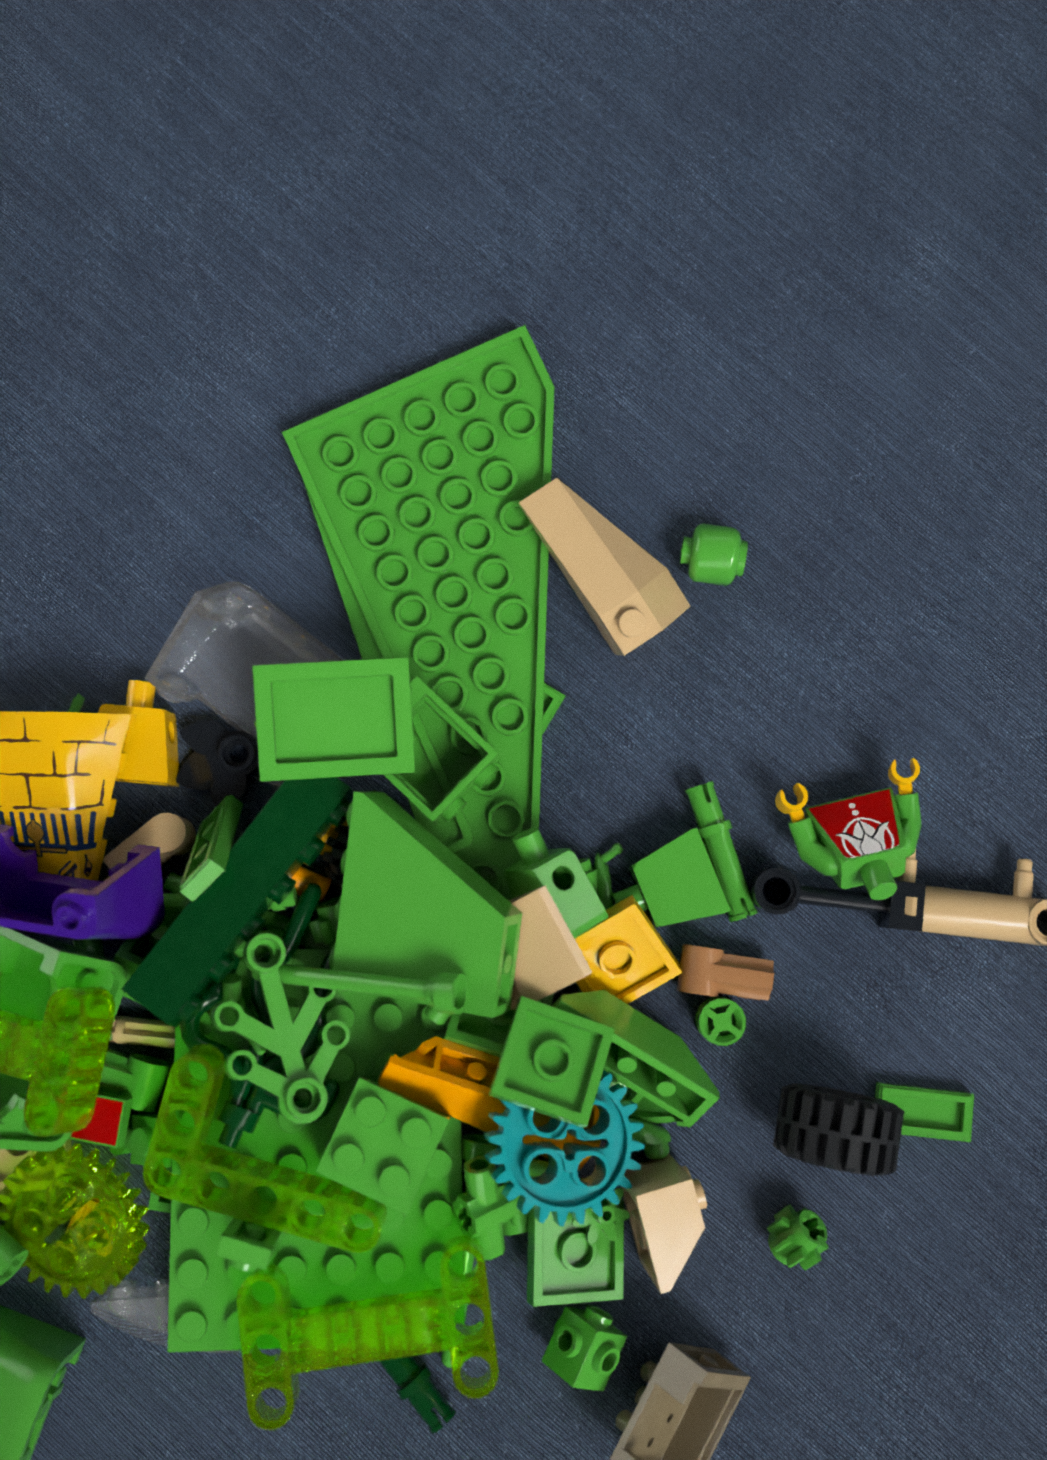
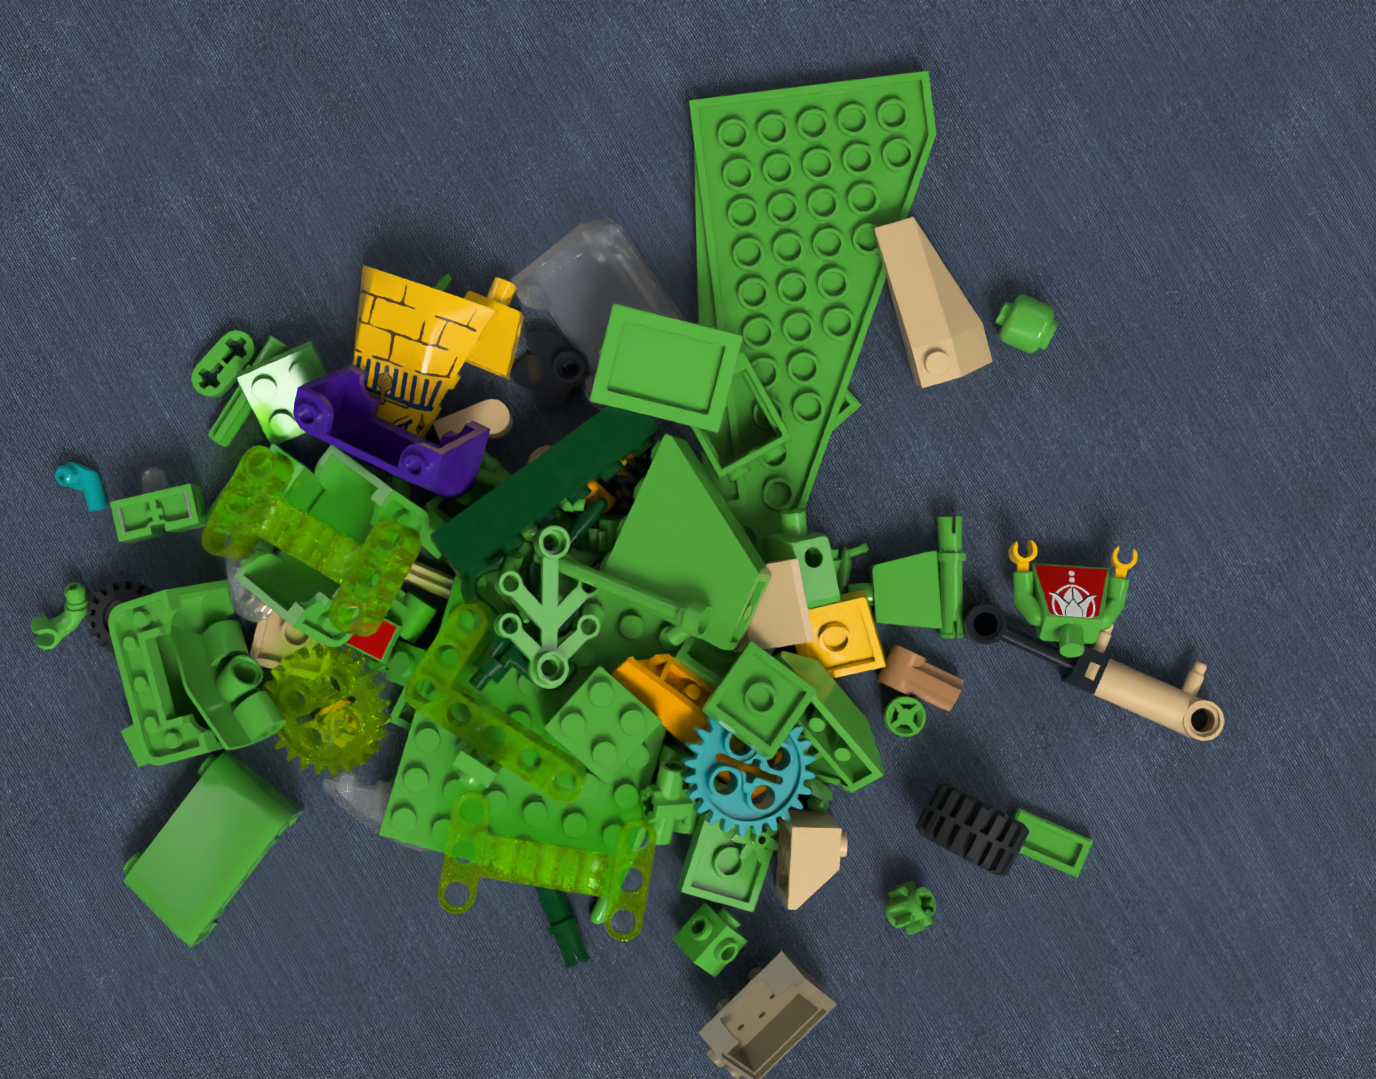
camera: 15 degrees right, 5 degrees up
(211, 848) = (530, 441): bright green tile -> none

